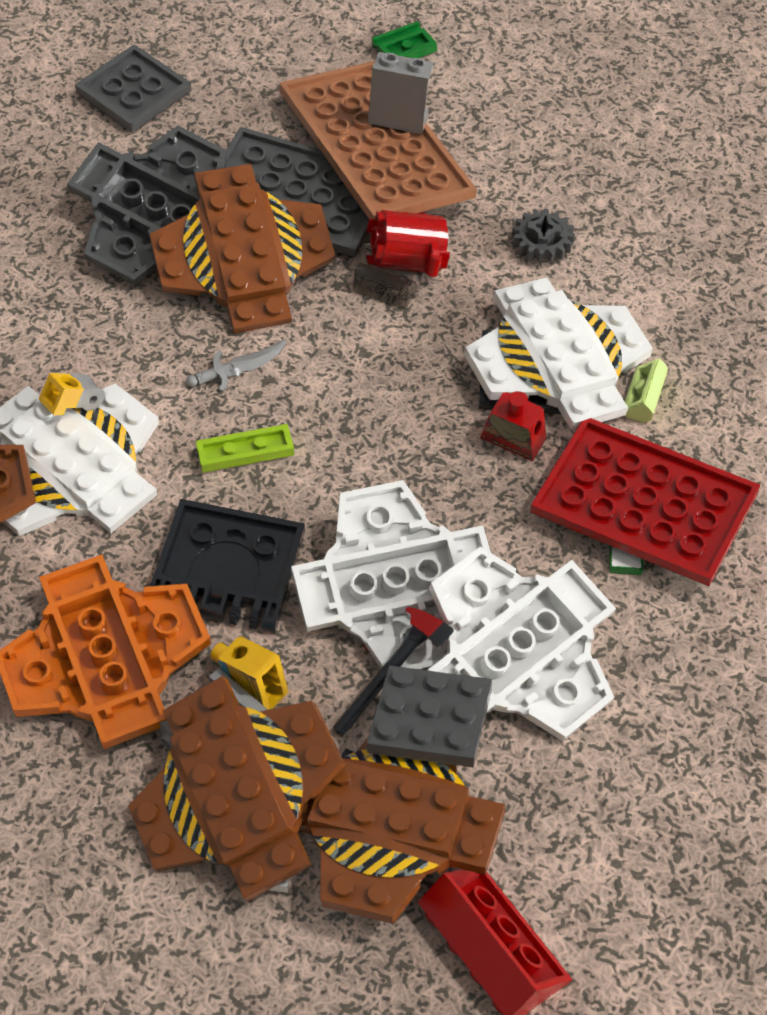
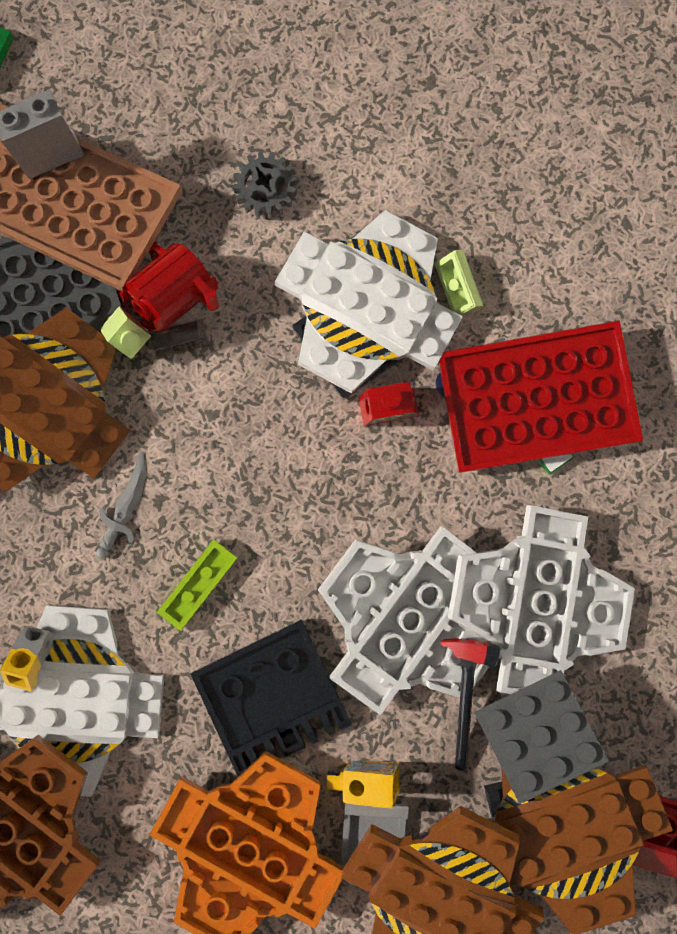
camera: 35 degrees left, 30 degrees up
(349, 249) = (125, 332): none -> yellowish green brick

